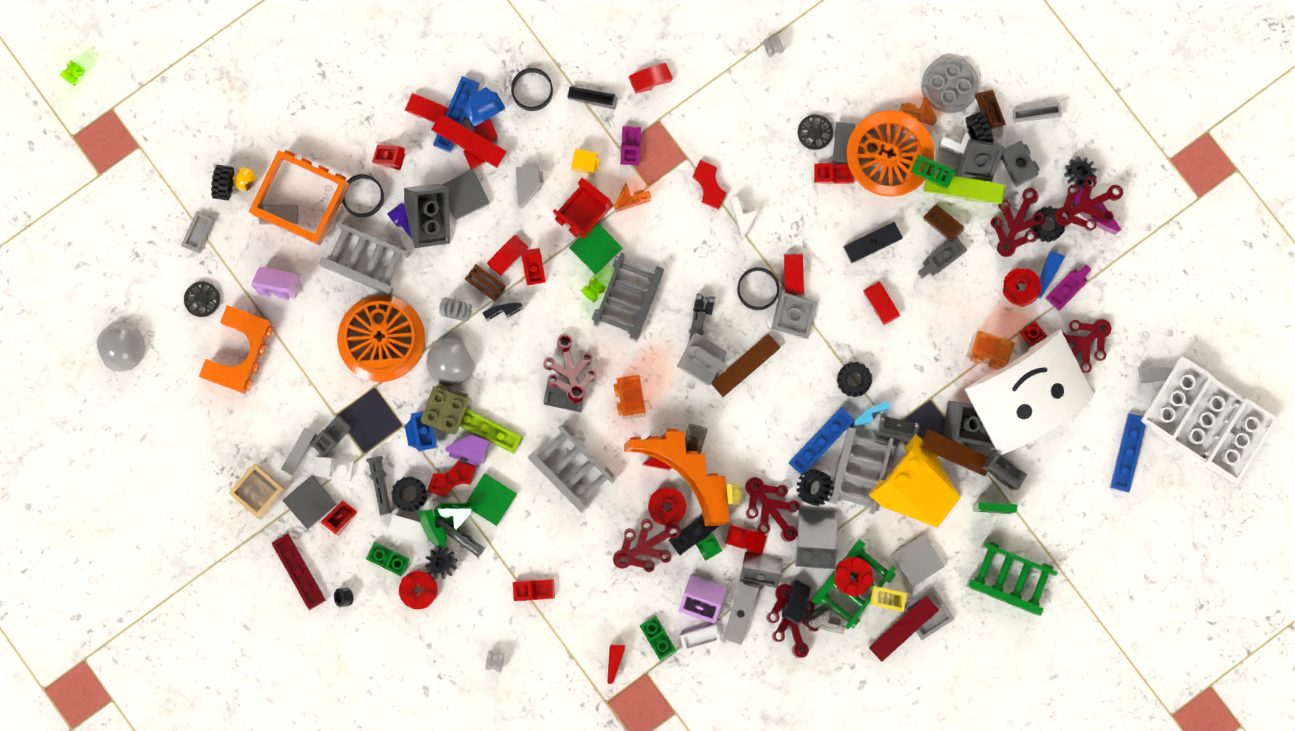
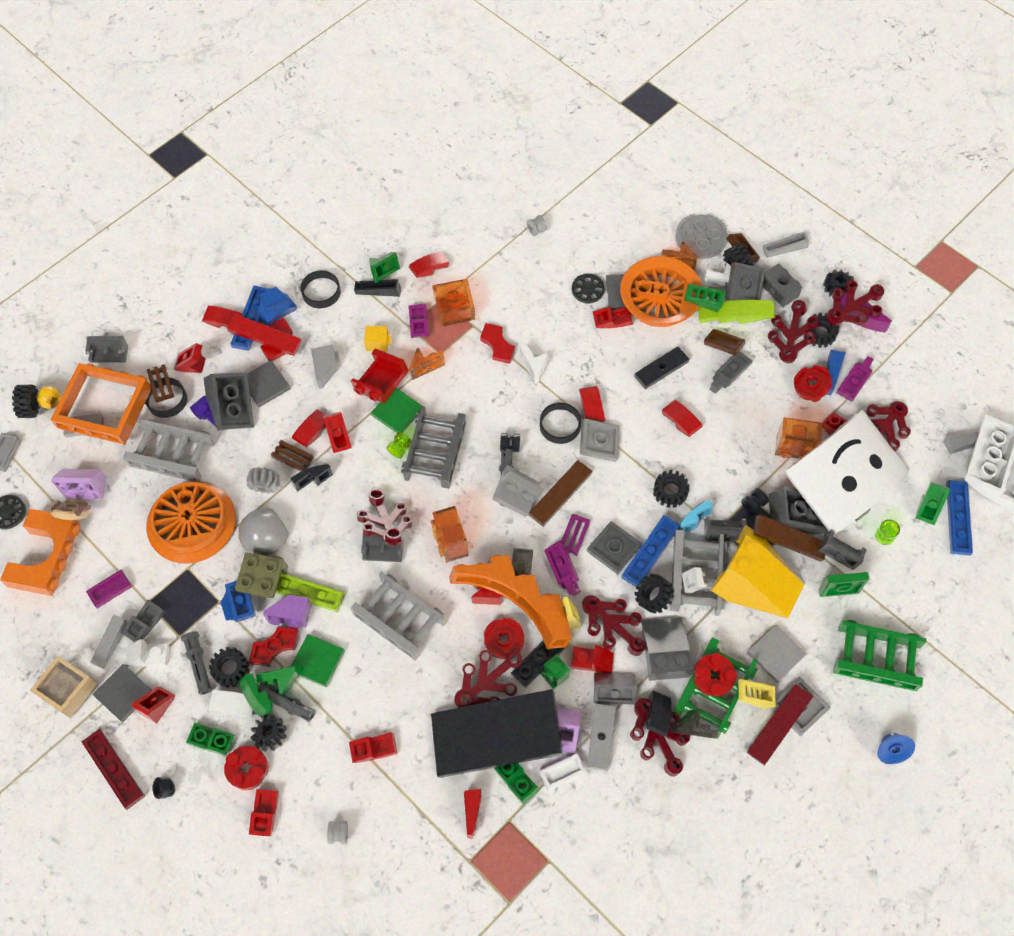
camera: 10 degrees left, 20 degrees down
(265, 311) = (70, 509): none -> tan tile
(299, 396) = (109, 589): none -> magenta tile
(304, 130) = (106, 349): none -> dark grey hinge
(355, 166) = (157, 371): none -> reddish brown tile
(431, 632) = (264, 812): none -> red slope
(602, 76) = (384, 266): none -> green slope
(646, 598) = (496, 733): none -> black tile
(670, 132) = (453, 302): none -> clear orange brick
(734, 445) = (563, 567): none -> magenta hinge
(759, 397) = (575, 551): none -> magenta tile
(787, 431) = (614, 547): none -> dark grey tile
(854, 482) = (693, 580): none -> white tile
(933, 406) = (755, 501): none -> black wheel
(1001, 666) = (895, 748): none -> piece
(1056, 458) = (887, 532): none -> clear neon green wheel
(1104, 437) = (932, 503): none -> green slope

